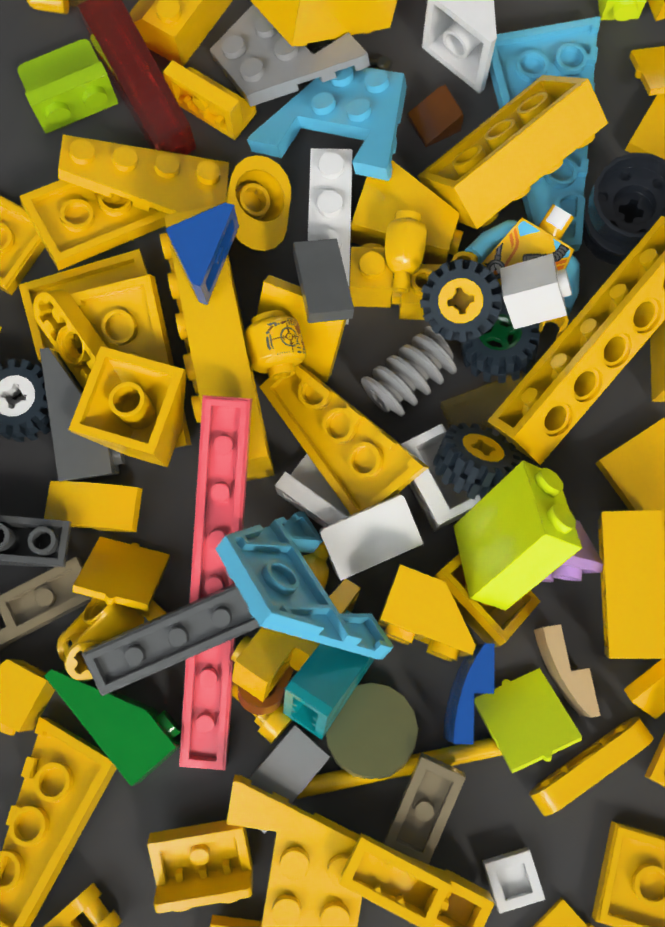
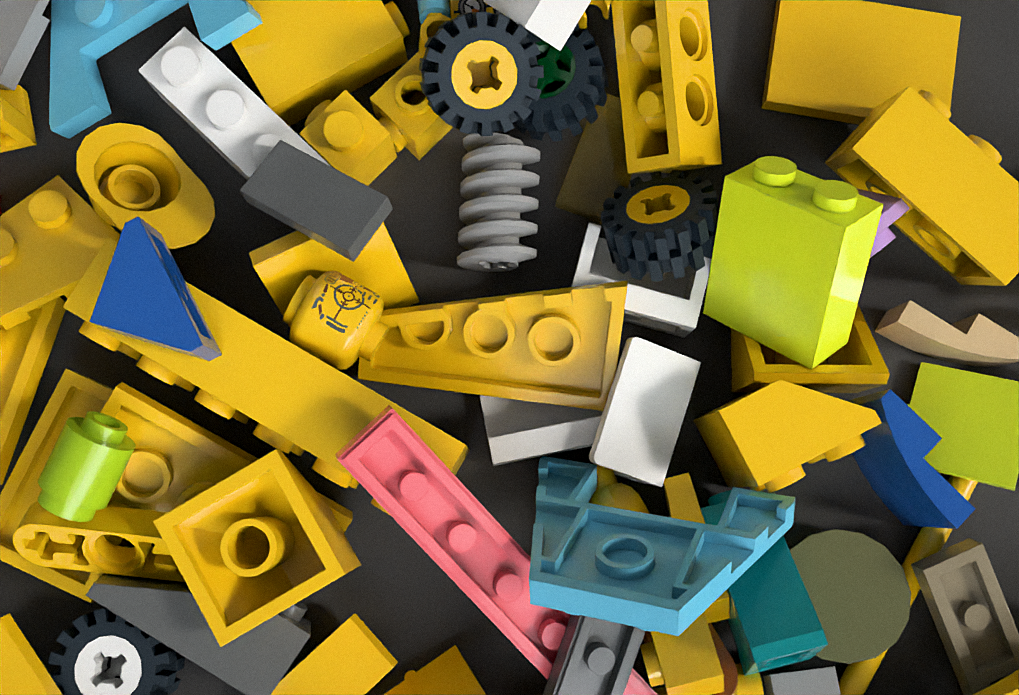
camera: 55 degrees left, 5 degrees up
(99, 293) = (85, 466): none -> lime brick
(405, 247) = (359, 77): yellow plant -> none

